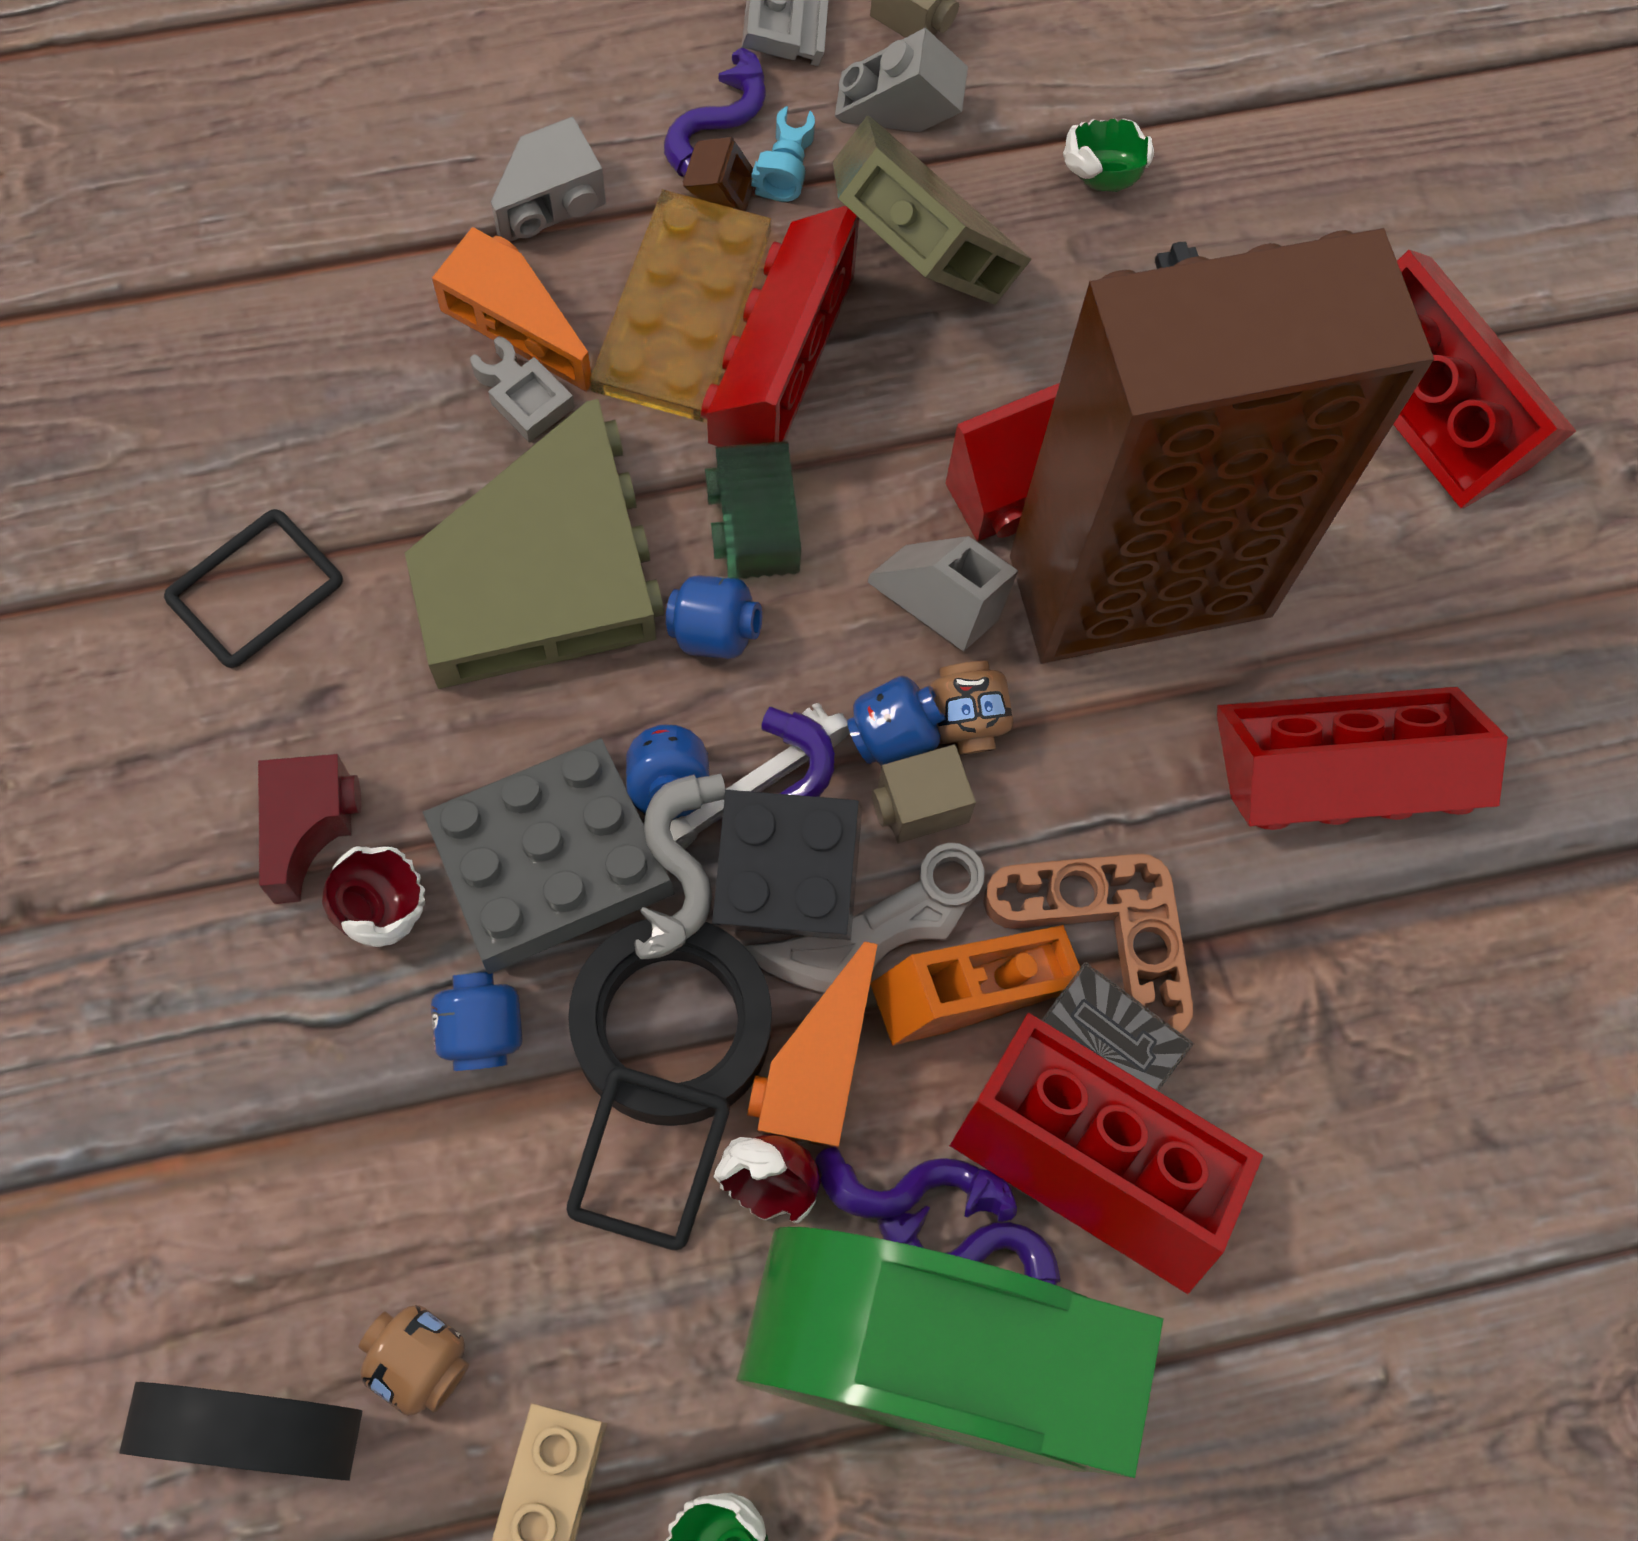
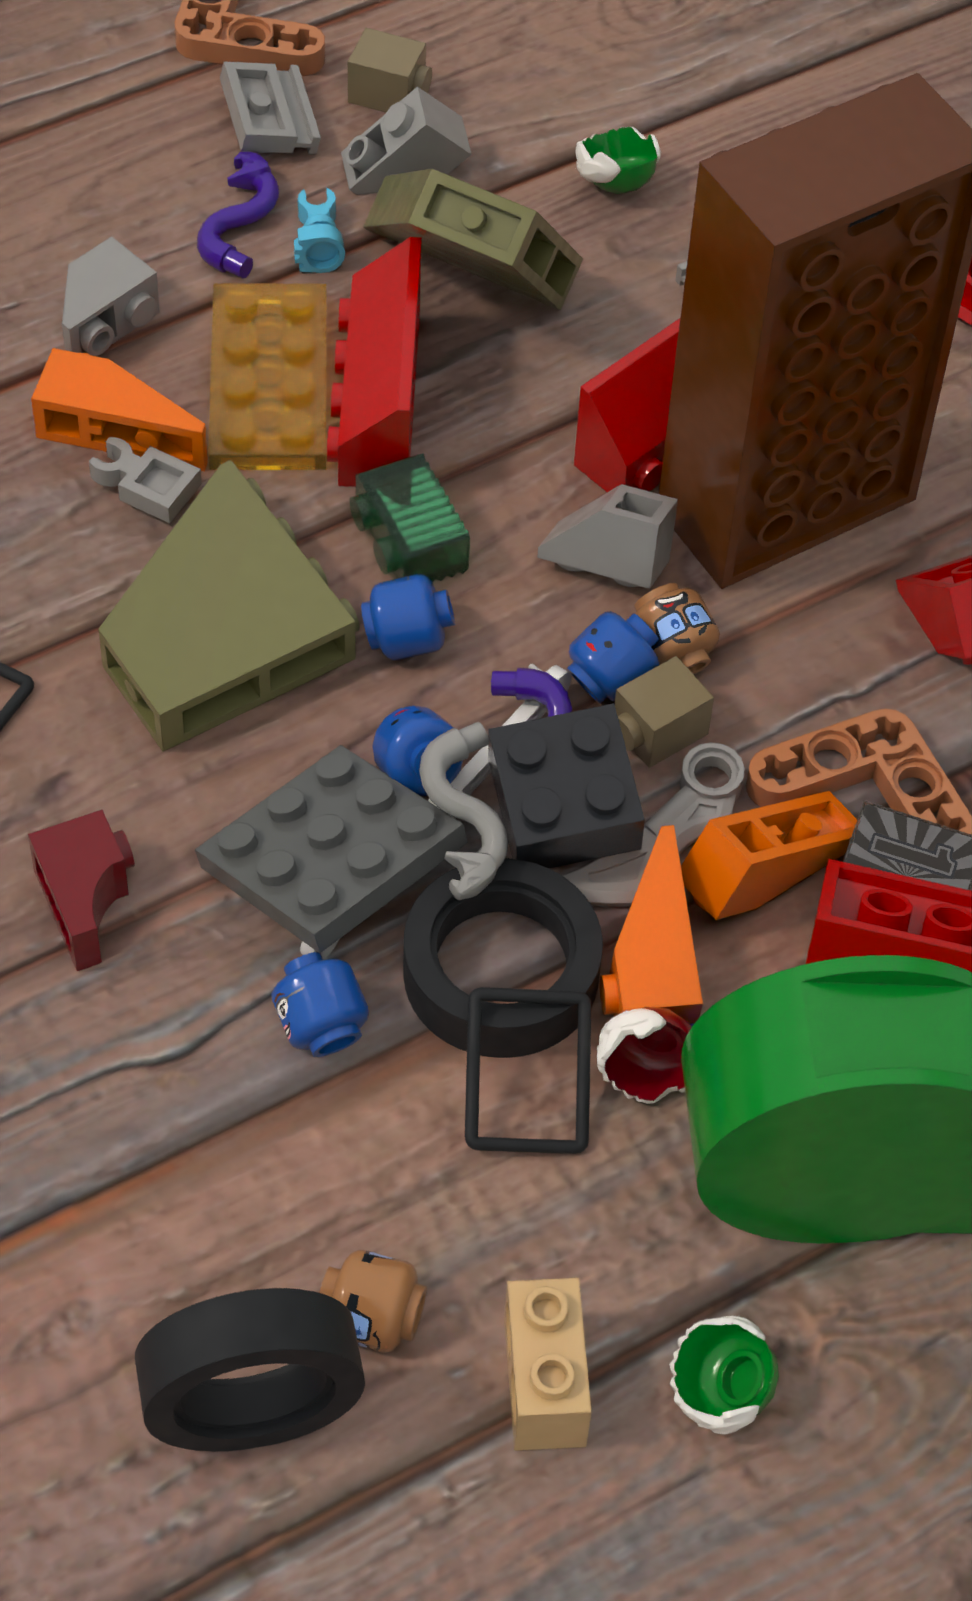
camera: 15 degrees left, 15 degrees down
(373, 895) = (179, 926): dark red hair -> none
(720, 173) = (263, 255): reddish brown slope -> none

